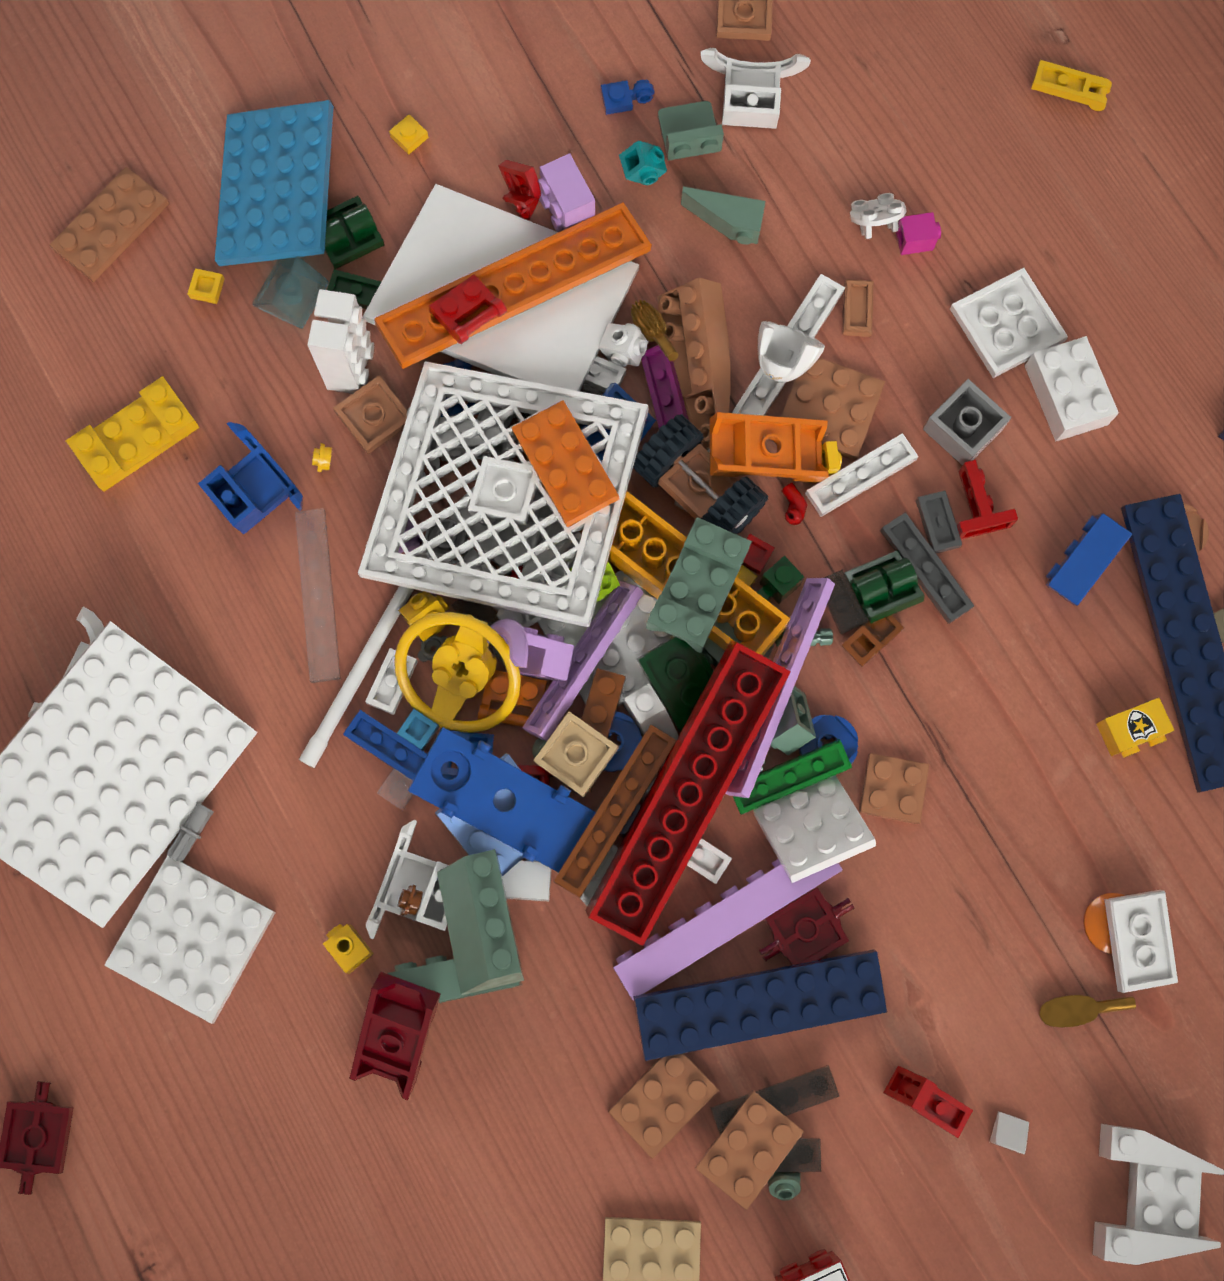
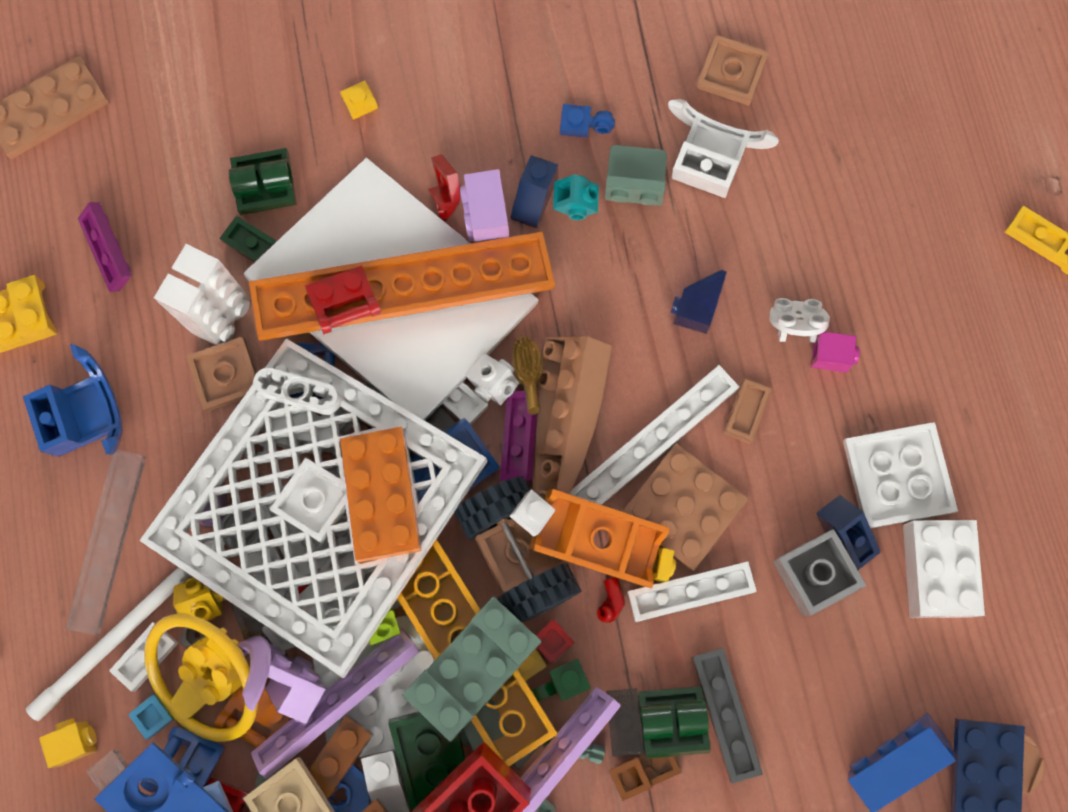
camera: 25 degrees right, 0 degrees up
(206, 286) = (111, 195): yellow plate -> none
(218, 333) = (104, 246): none -> magenta plate
(274, 184) = (209, 114): dark azure plate -> none
(291, 291) = (190, 222): clear light blue slope -> none
(322, 457) = (158, 403): yellow plate -> none
(351, 775) = (68, 743): none -> yellow brick
(385, 744) = (112, 720): blue plate -> none
(446, 392) = (287, 381): none -> white beam
(603, 168) = (534, 191): none -> dark blue slope
(706, 438) = (532, 513): none -> white plate
(729, 214) = (649, 277): sand green slope -> none
(784, 226) = (698, 303): none -> clear blue slope
(786, 352) = (652, 439): white hair -> none
(939, 522) = (755, 669): dark grey plate -> none
(981, 505) = (805, 664): red bracket -> none
(983, 374) = (851, 529): none -> dark blue slope

